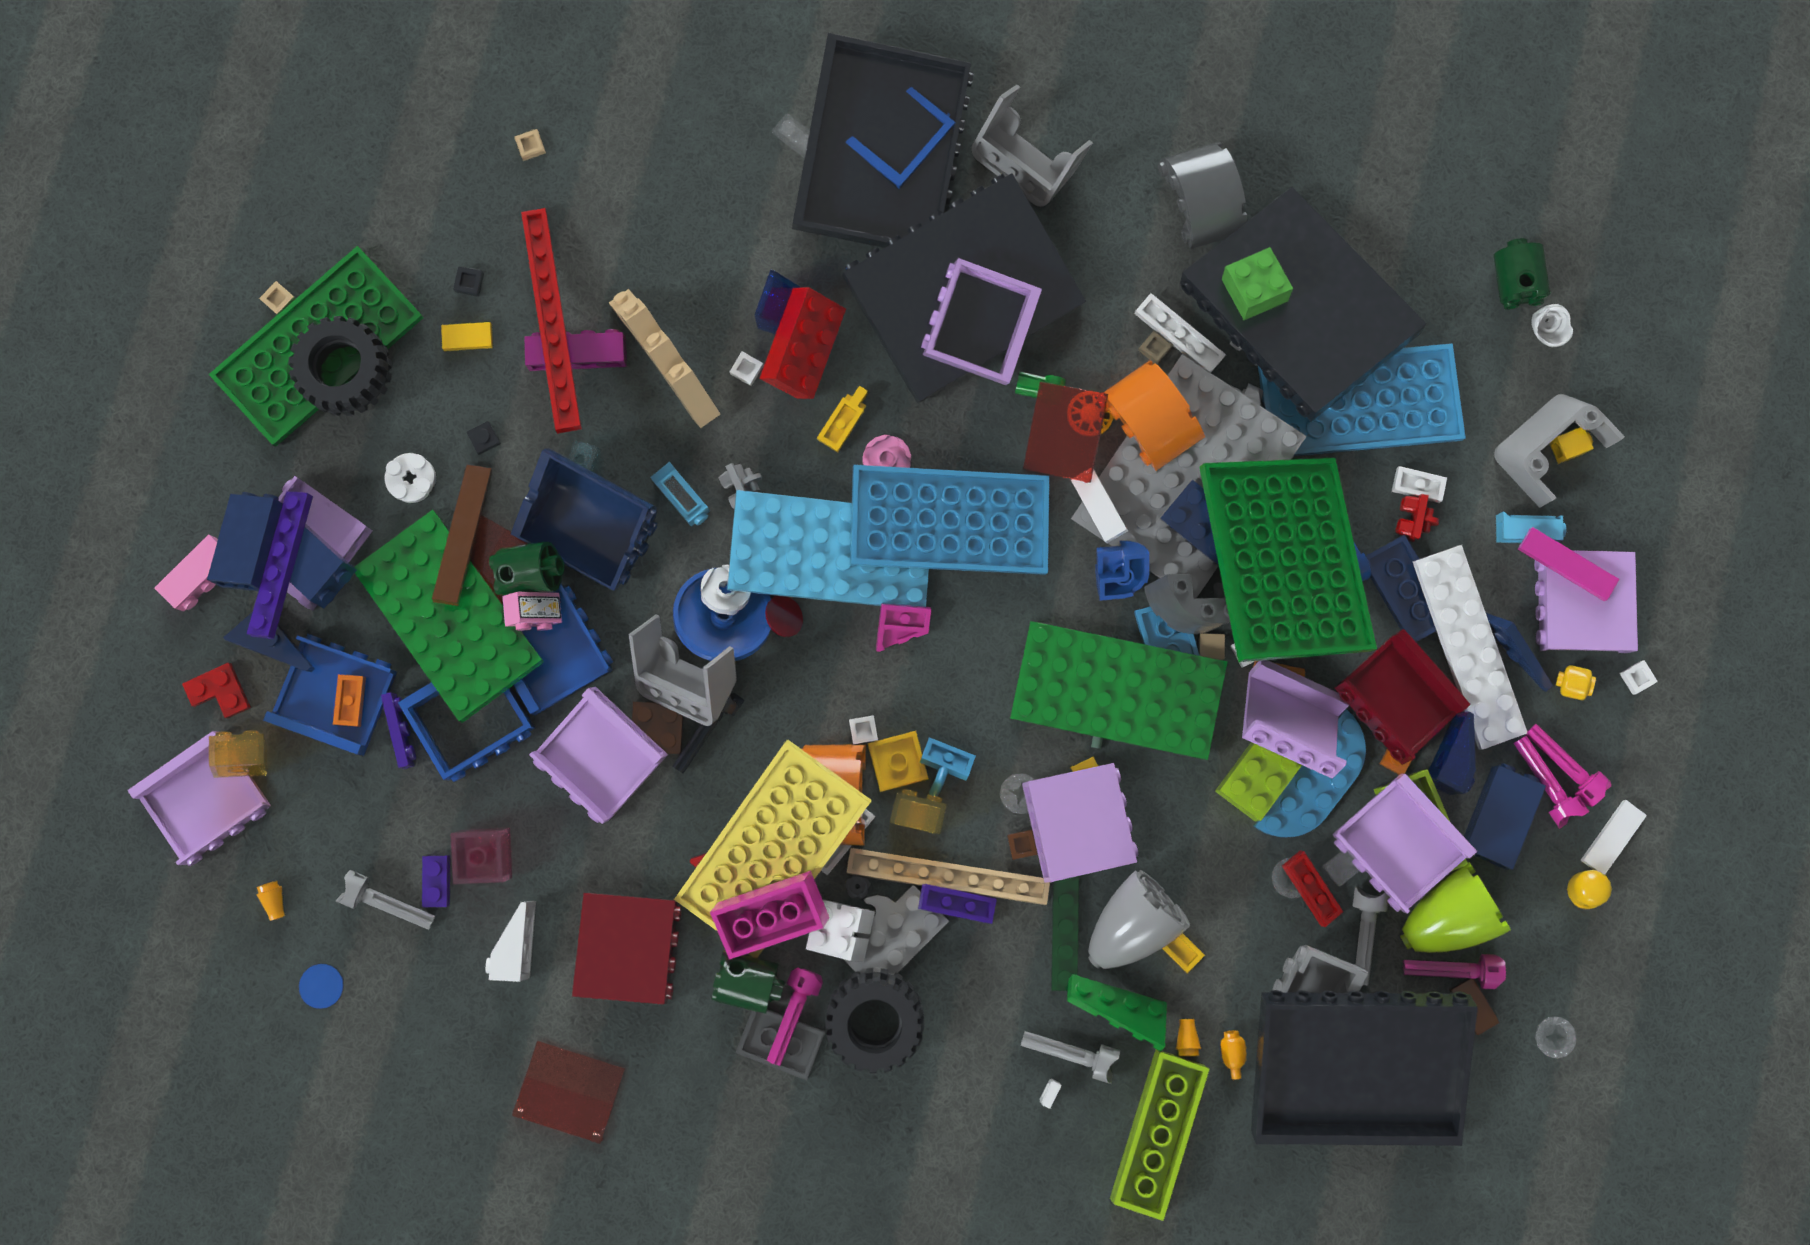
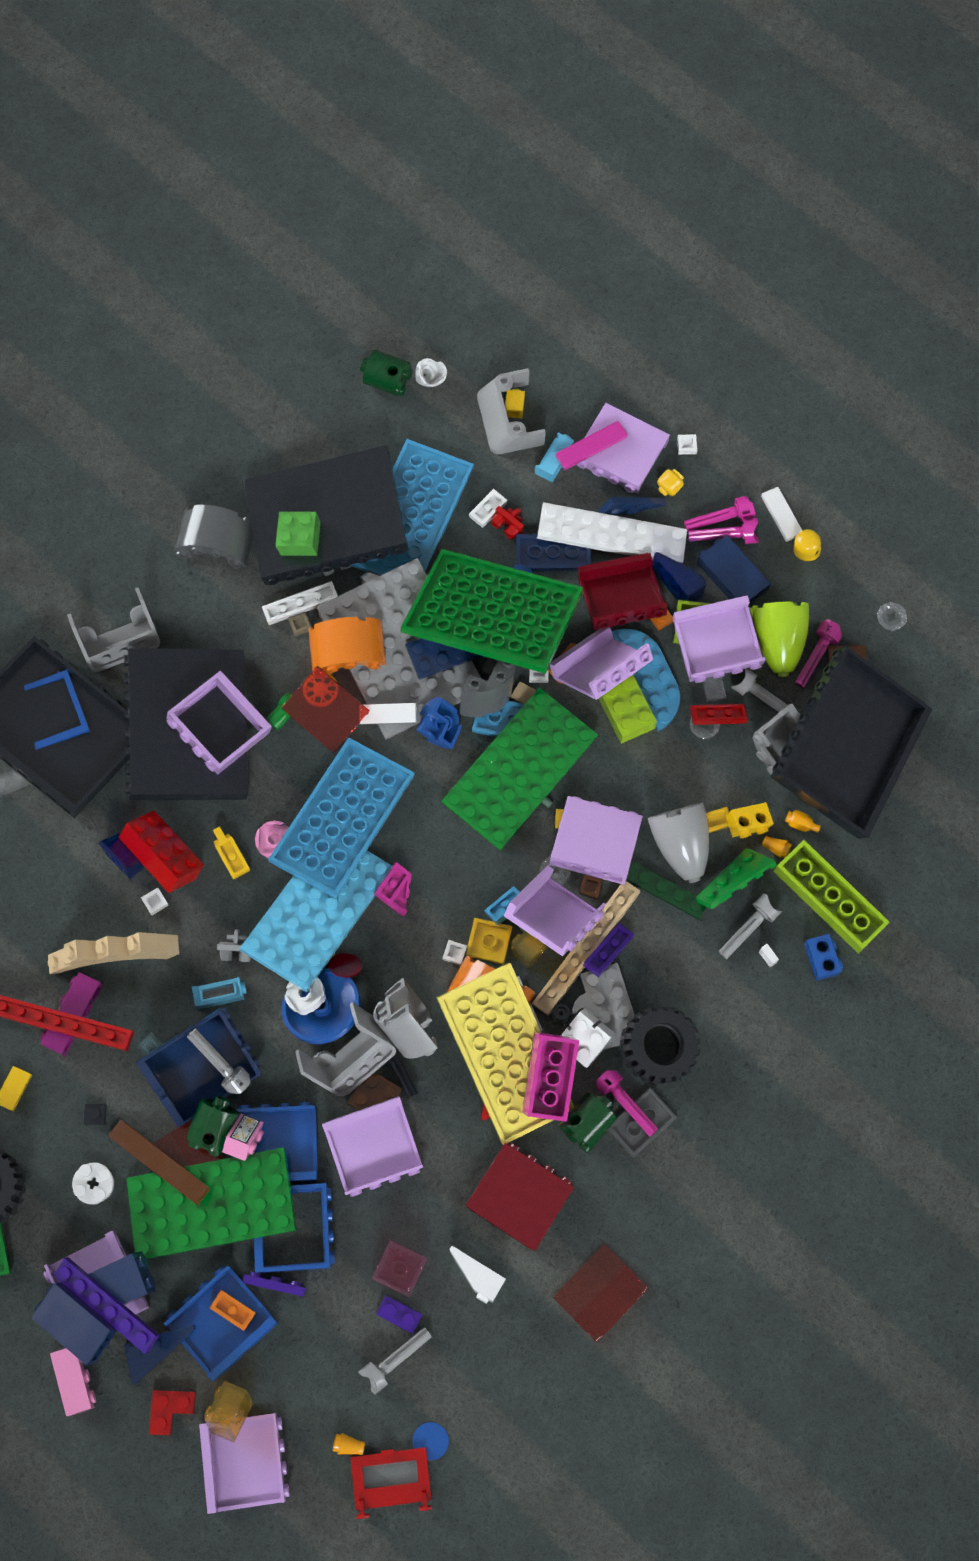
camera: 60 degrees left, 10 degrees down
(260, 965) = (391, 1479): none -> red piece
(589, 560) = (235, 1079): none -> light grey piece
(753, 710) = (403, 1021): none -> light grey cylinder
(960, 820) = (553, 913): none -> lavender panel
(1077, 1154) = (817, 957): none -> blue brick
(1203, 987) = (747, 816): none -> yellow brick

